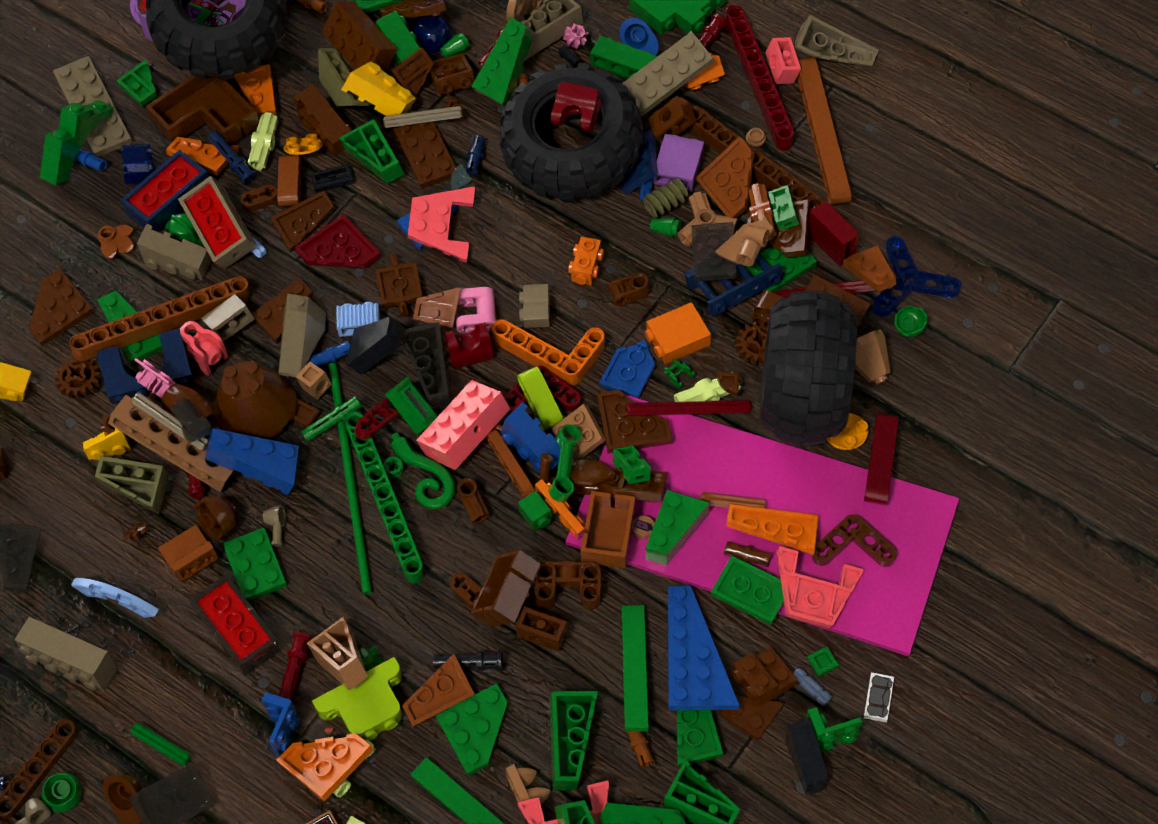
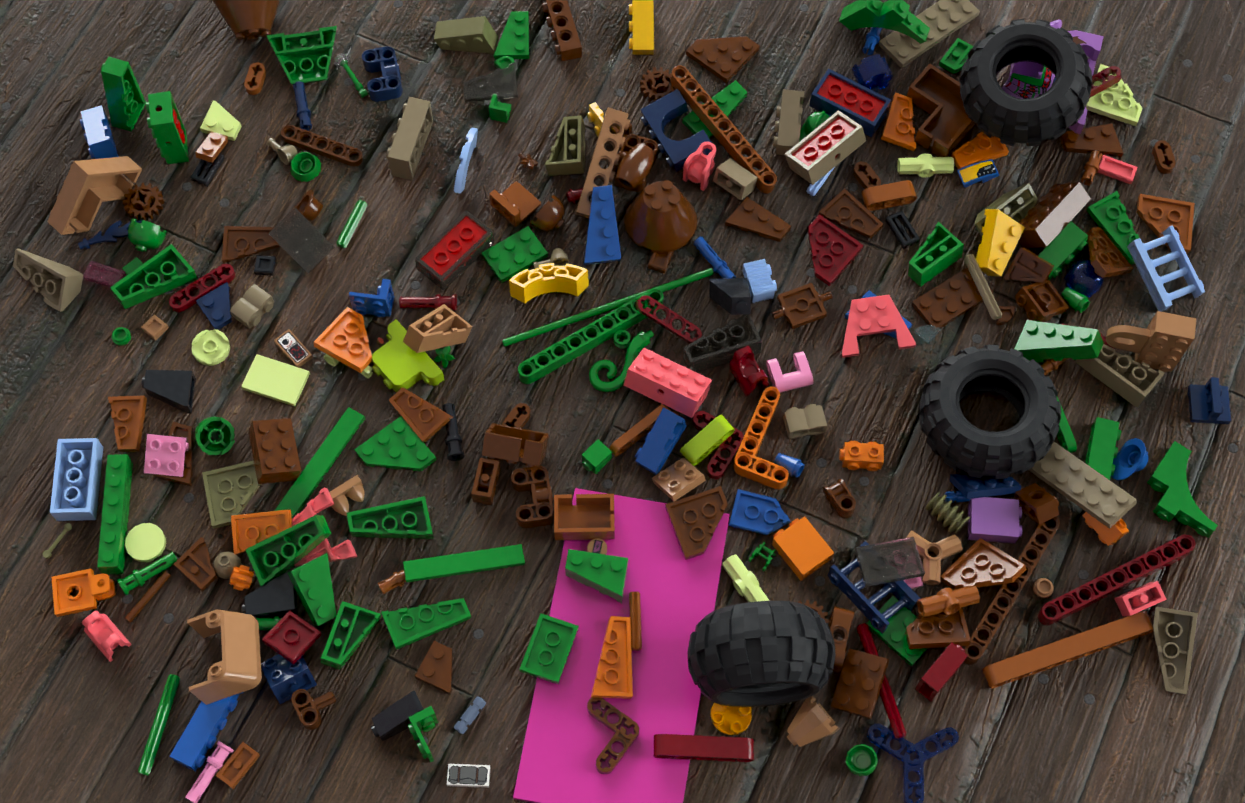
camera: 75 degrees right, 5 degrees up
(54, 553) = (498, 110): none -> green panel
(117, 242) = (797, 81): dark orange plate -> none
(153, 379) = (659, 135): bright pink hinge -> none
(164, 417) = (615, 152): dark tan axle -> none
(192, 424) = (611, 170): clear smoke piece -> none
(237, 163) = (894, 150): dark blue pin -> none
(285, 98) = (978, 171): none -> slope
(300, 333) = (734, 236): dark tan wedge -> none
(301, 527) = (548, 279): none -> yellow brick
(303, 145) = (928, 197): light orange dish -> none
(313, 380) = (688, 257): medium nougat brick -> none
(321, 118) = (959, 205): reddish brown wedge -> none
(331, 418) = (659, 283): green pin -> none
(411, 405) = (676, 337): green window -> none
(439, 307) = (783, 341): dark orange wing -> none
(472, 502) = (597, 407): reddish brown piece -> none
(475, 155) = (957, 341): dark blue pin -> none
(565, 461) = (638, 467): green piece -> none
(567, 53) = (1095, 399): black pin -> none
(573, 524) = (600, 472): orange wing -> none
(575, 35) = (1122, 399): bright pink gear -> none
(576, 99) = (1003, 407): dark red piece -> none
(579, 329) = (793, 465): none -> blue cone
(595, 476) = (631, 517): reddish brown plate -> none
(629, 460) = (650, 525): green piece -> none
(666, 226) = (918, 520): green cone -> none
(687, 407) = (718, 558): dark red axle -> none
(694, 664) = (473, 610): blue wing -> none
(711, 31) = (1157, 525): dark red pin -> none
(729, 382) = (755, 595): reddish brown tile -> none
(746, 243) = (900, 586): medium nougat panel -> none
(747, 554) = (585, 640): reddish brown pin -> none
(763, 676) = (471, 671): reddish brown plate -> none
(783, 207) = (949, 621): green piece -> none
(812, 598) = (547, 702): coral wing -> none
(822, 661) = (496, 722): green tile -> none
(871, 268) = (911, 714): dark orange wing -> none

